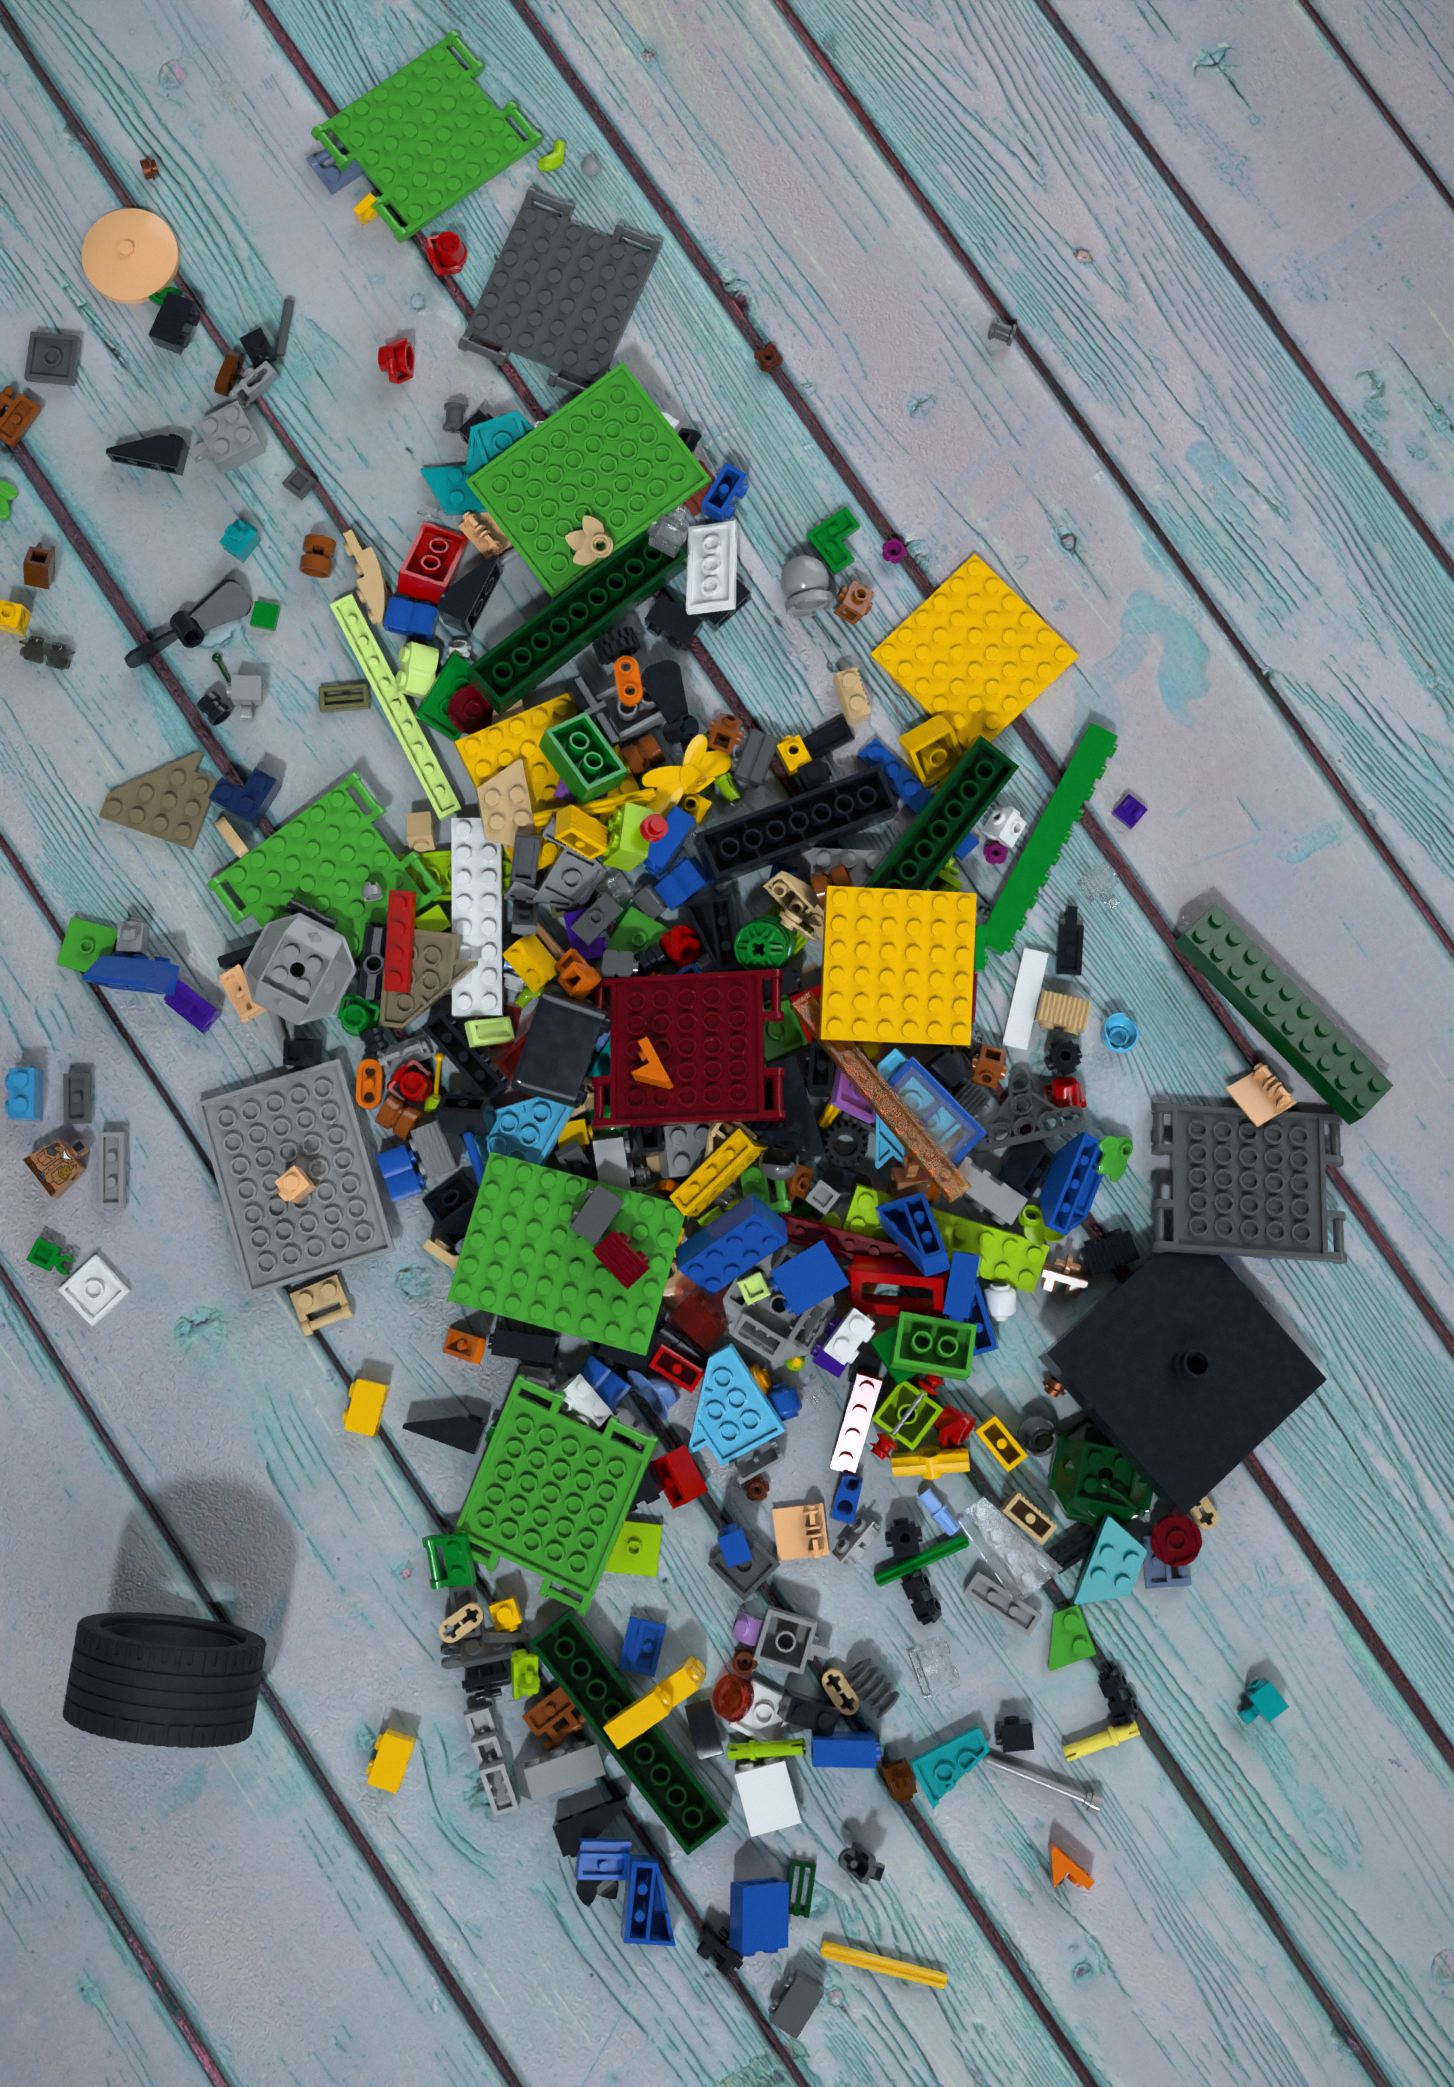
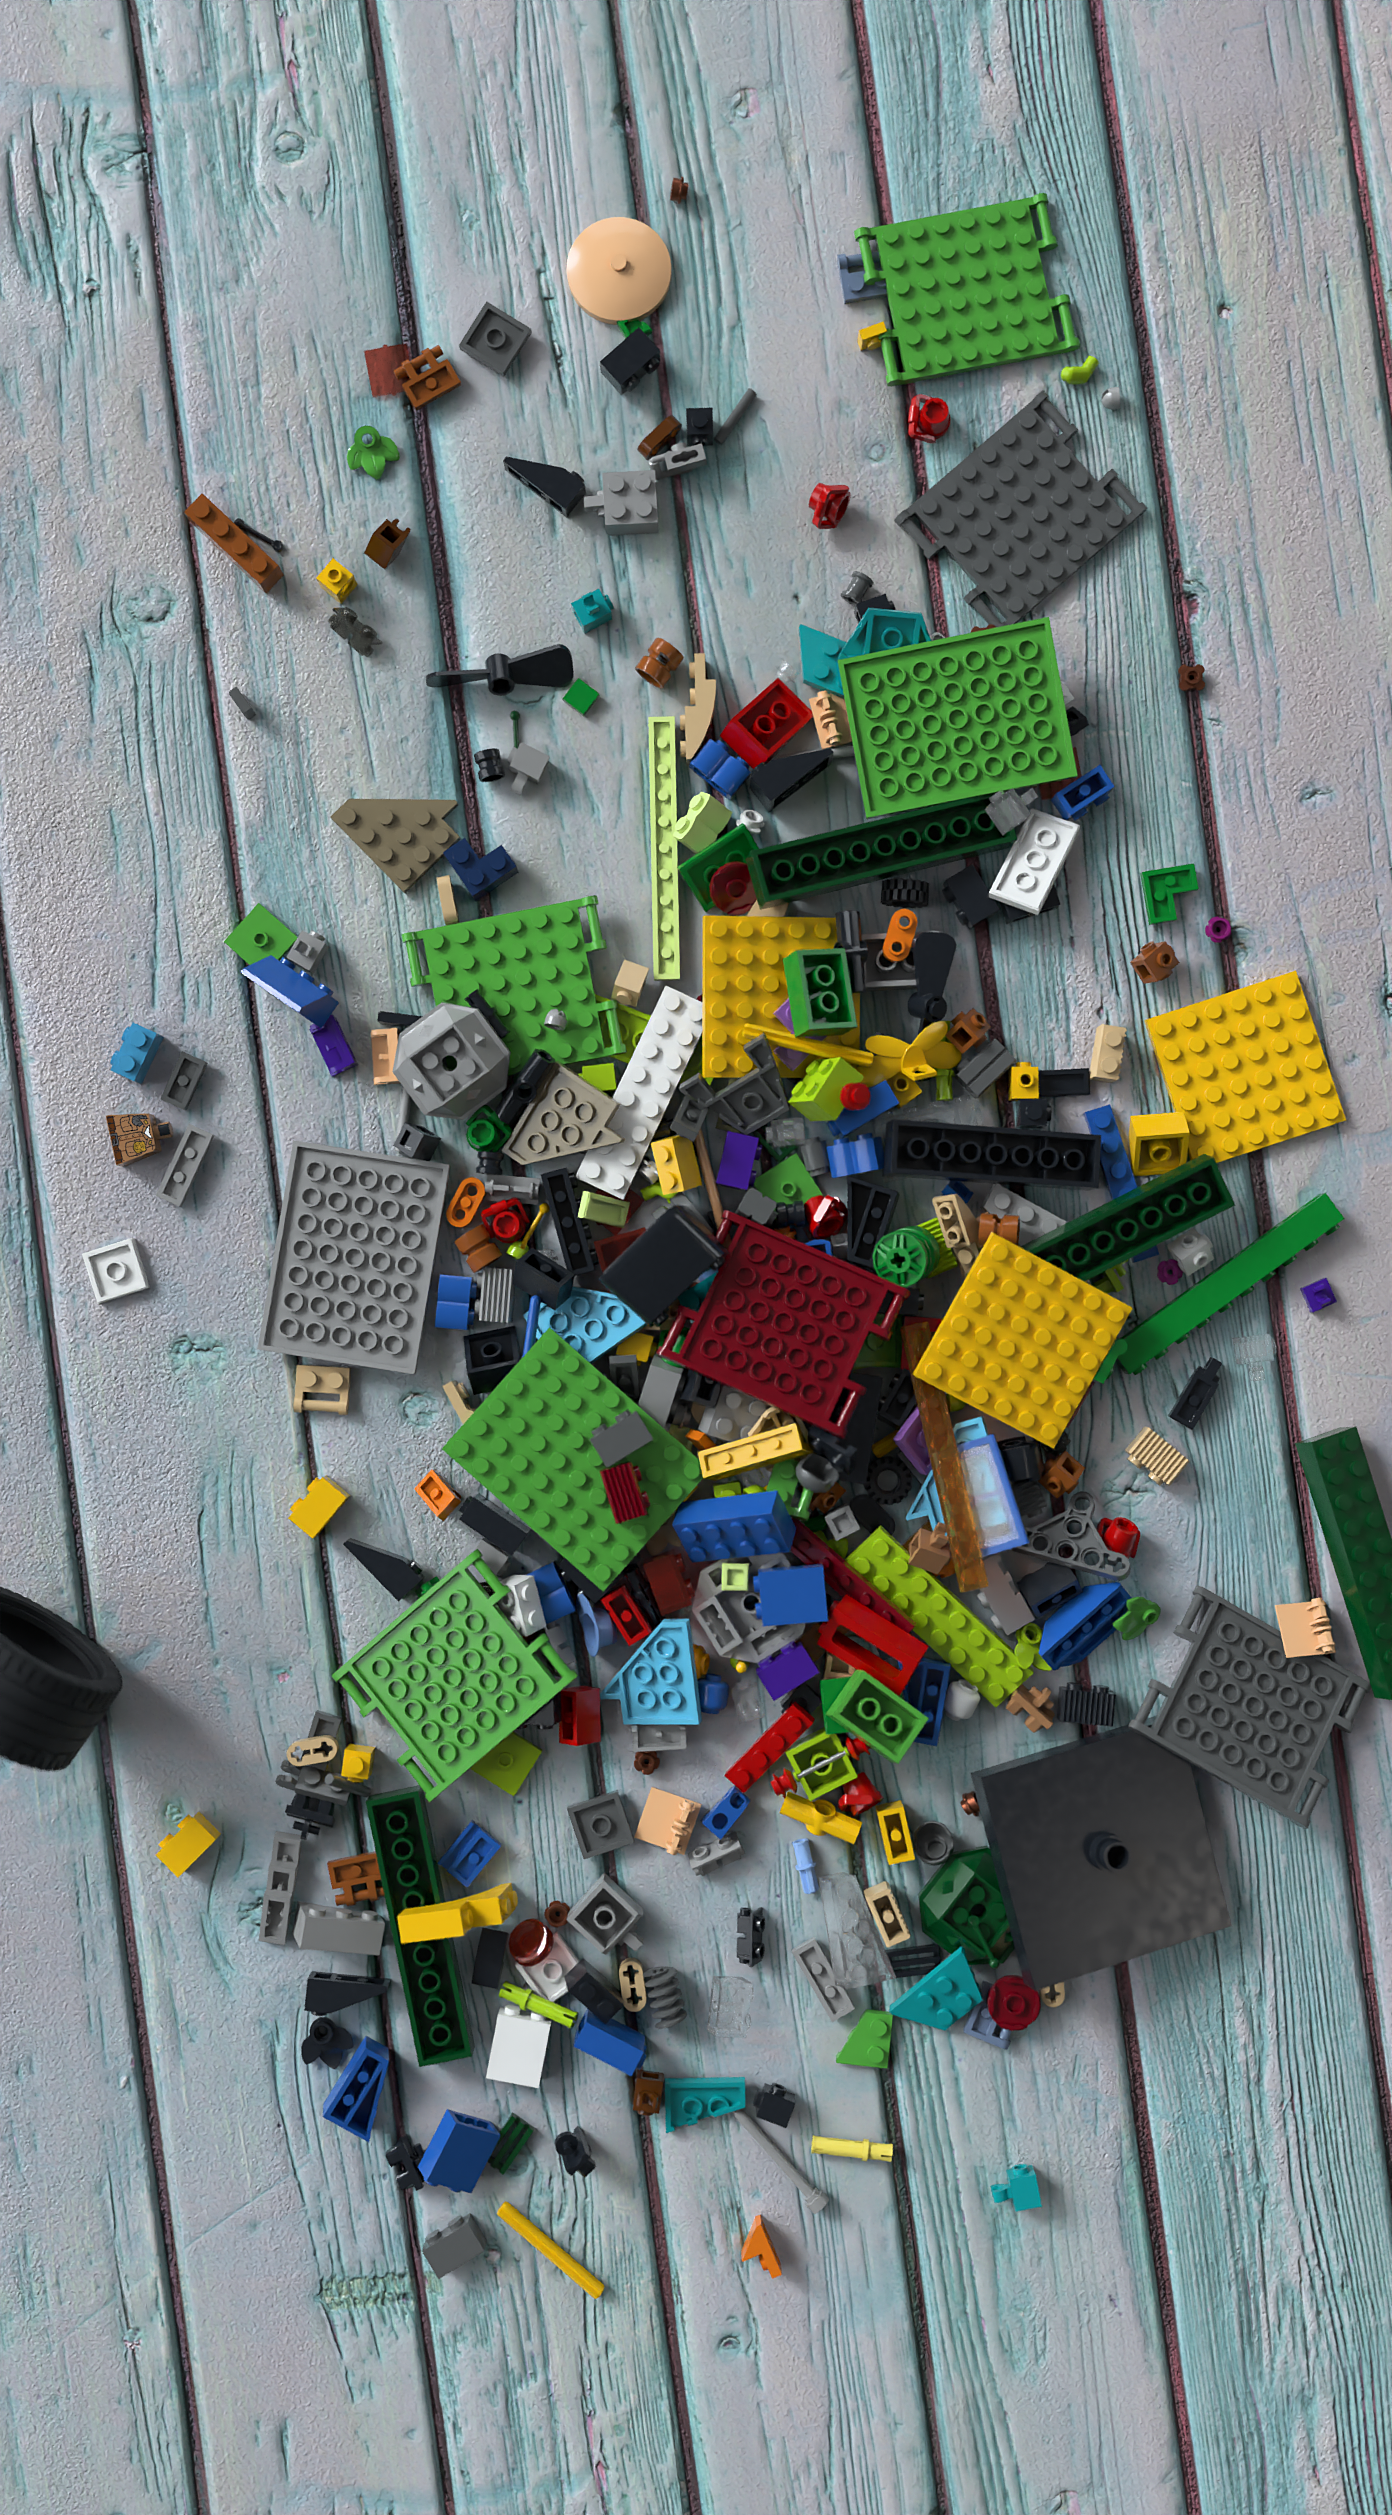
camera: 25 degrees right, 5 degrees up
(48, 1255) = (87, 1217): green plate -> none
(294, 1185) = (349, 1267): light nougat brick -> none
(299, 483) = (676, 580): dark grey tile -> none
(344, 707) = (616, 825): olive tile -> none
(399, 941) = (560, 1082): red plate -> none
(457, 1560) = (336, 1690): green plate -> none
(505, 805) = (723, 1007): tan wing -> none
(524, 1673) = (348, 1826): lime hips -> none
(525, 857) = (718, 1062): black tile -> none
(576, 975) = (712, 1201): orange brick -> none
(581, 832) = (783, 1064): yellow brick -> none
(586, 542) = (926, 777): tan plate -> none
(597, 918) = (758, 1152): dark grey plate -> none
(603, 1859) = (340, 2030): blue plate -> none
(643, 755) = (878, 1012): dark orange wheel -> none
(653, 1072) = (741, 1331): orange slope -> none
(734, 1544) = (600, 1807): blue brick -> none
(747, 1629) = (574, 1886): lavender plate -> none
(791, 920) = (942, 1246): tan plate -> none
(805, 584) = (1116, 922): light grey tile -> none
(848, 1336) = (801, 1669): white brick -> none
(905, 1547) = (761, 1884): black brick -> none
(915, 1232) = (914, 1603): blue wedge -> none
(921, 1560) = (767, 1901): green axle -> none
(962, 1285) = (933, 1674): blue brick -> none
(1025, 999) = (1127, 1425): white tile -> none
(1056, 1064) = (1126, 1497): black brick -> none
(1116, 1685) = (891, 2106): black hinge -> none
(1119, 1033) = (1200, 1503): medium azure hair -> none

